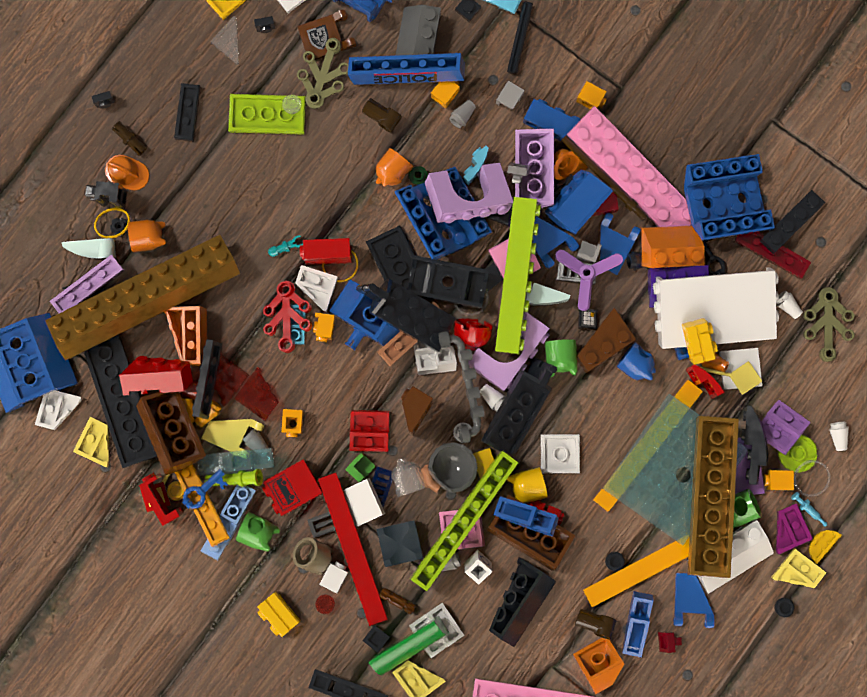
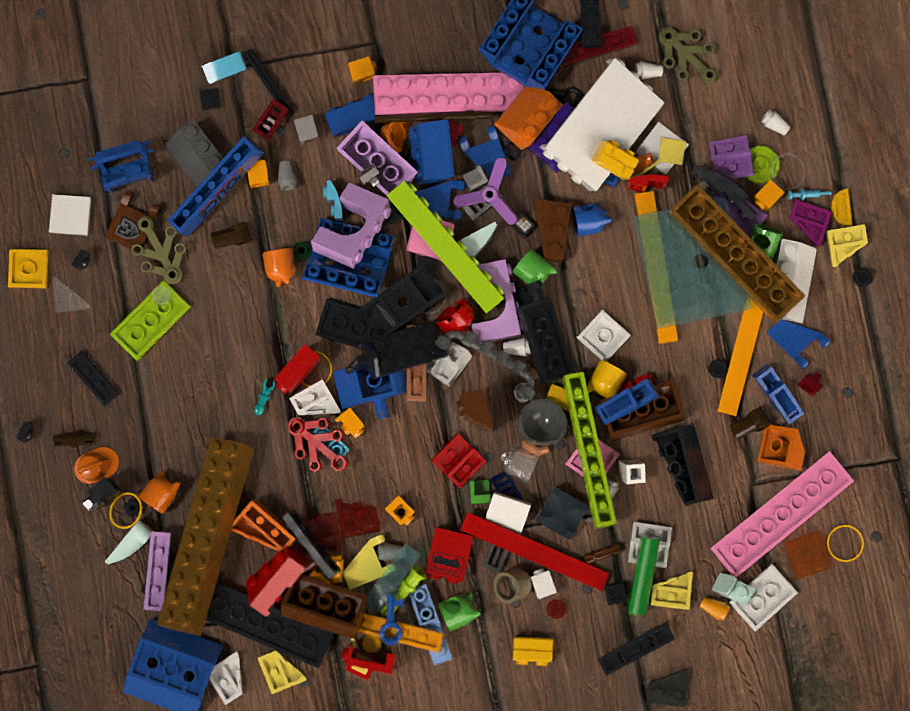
camera: 50 degrees left, 0 degrees up
(494, 71) = (267, 136): none -> dark red slope

